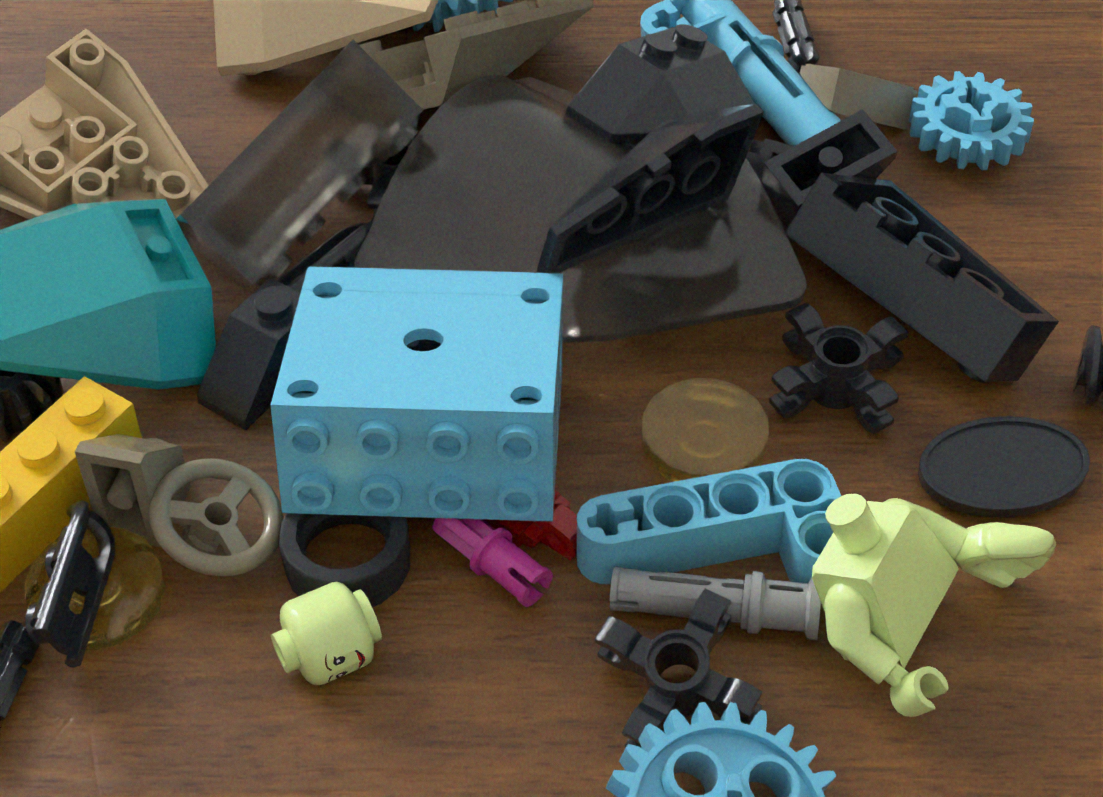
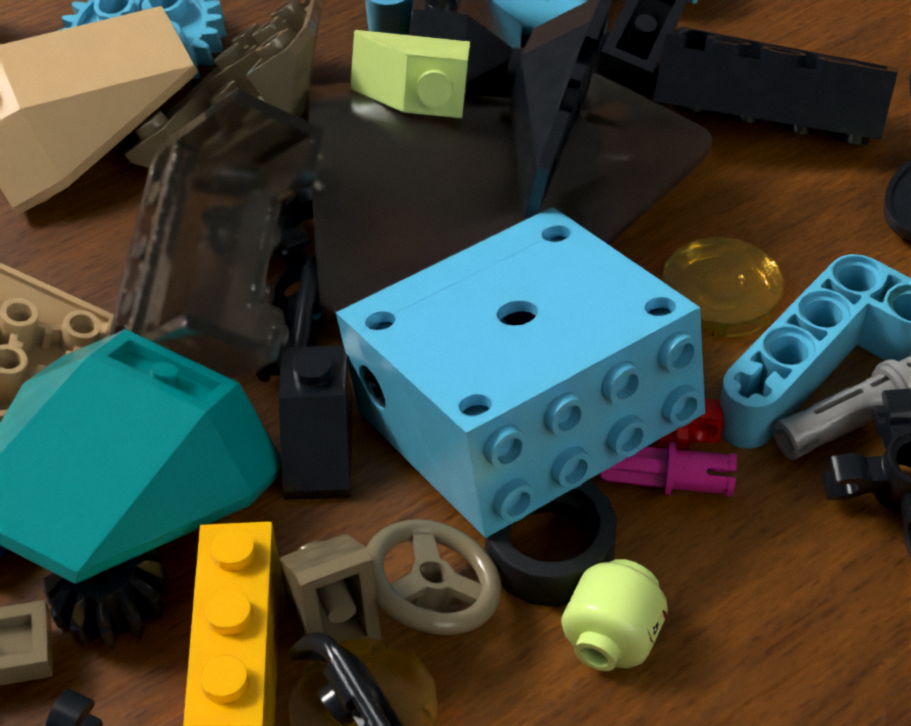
camera: 35 degrees left, 0 degrees up
(571, 103) = (411, 72): none -> yellowish green slope
(839, 368) = (773, 184): black pin -> none

